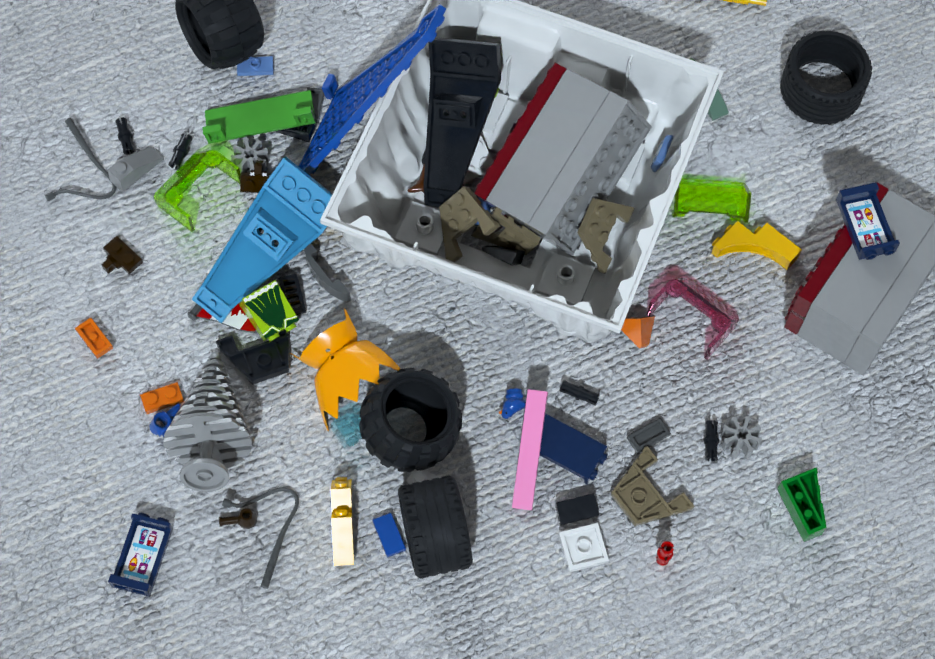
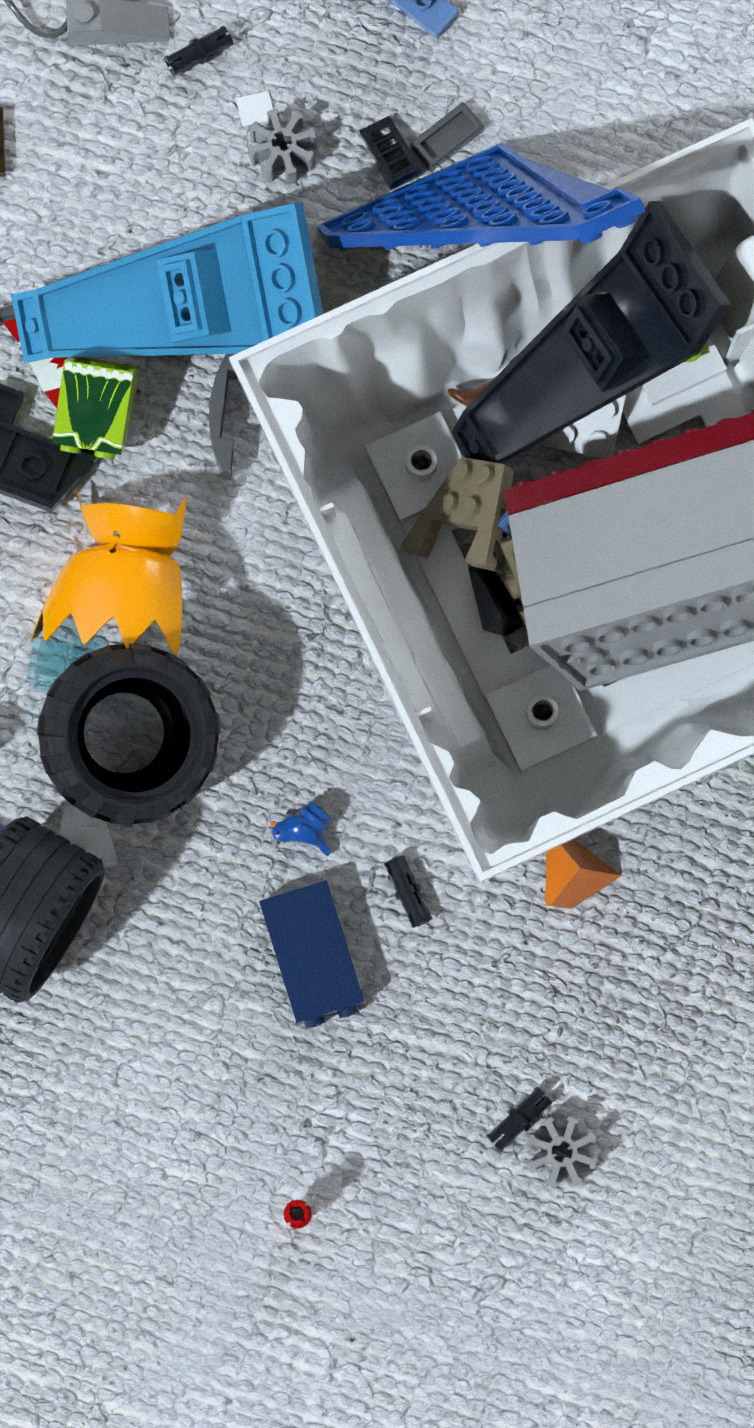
camera: 45 degrees right, 15 degrees up
(171, 195) = (165, 96): clear neon green windscreen -> none
(255, 179) = (258, 187): dark brown hinge -> none
(259, 117) = (350, 93): bright green bracket -> none
(290, 283) = (180, 384): black slope -> none
(330, 86) = (493, 130): blue tile -> none
(530, 449) = (256, 913): bright pink tile -> none
(577, 509) = (249, 1047): black slope -> none
(583, 547) = (207, 1105): white plate -> none
(597, 226) = (645, 684): dark tan wing -> none
(640, 498) = (345, 1109): dark tan wing -> none
(648, 435) = (443, 1034): dark grey tile -> none
(722, 317) = (712, 963): clear pink windscreen -> none
(804, 503) = (551, 1319): green wedge -> none

